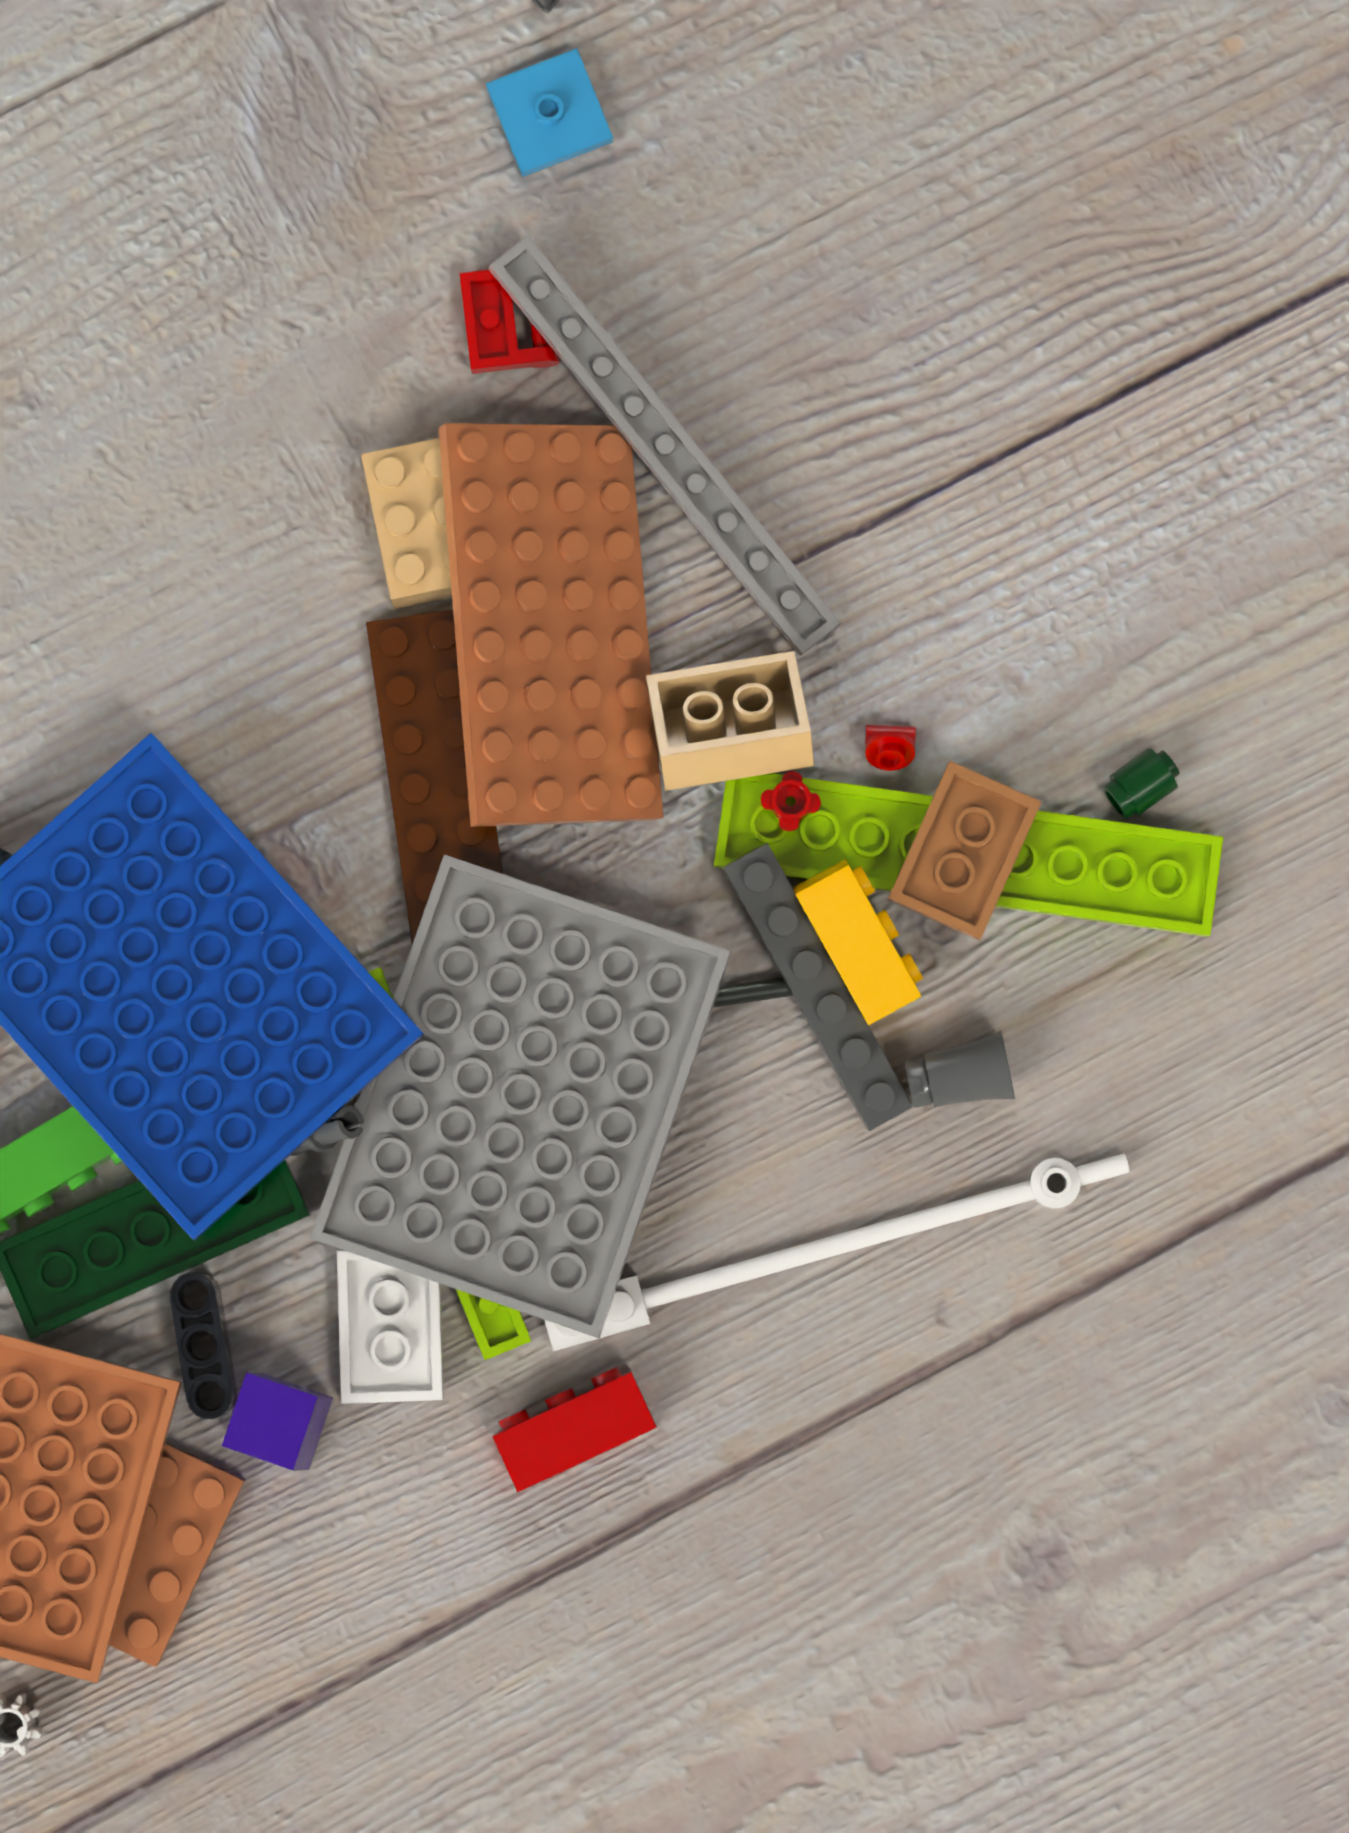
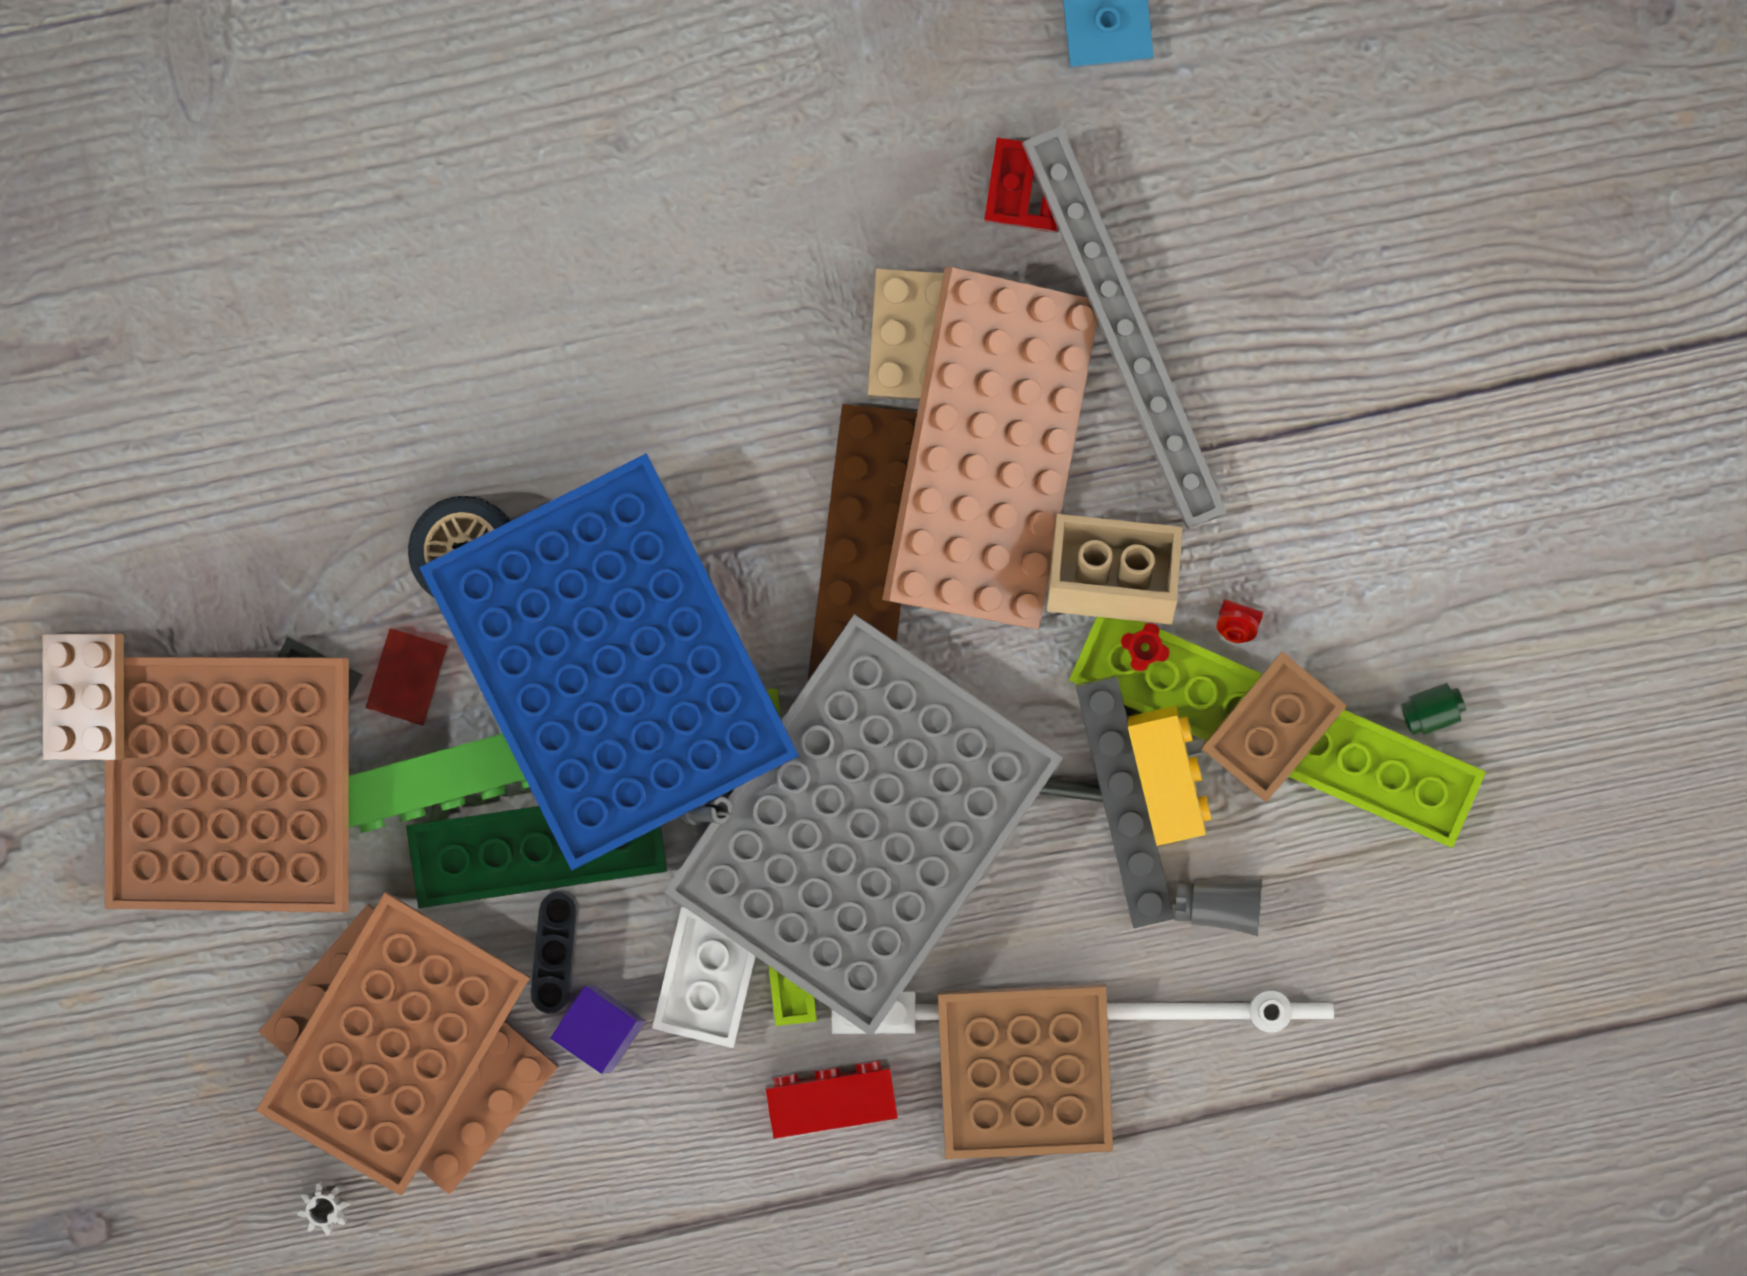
camera: 20 degrees right, 5 degrees up
(790, 1331) = (1025, 1071): none -> medium nougat plate

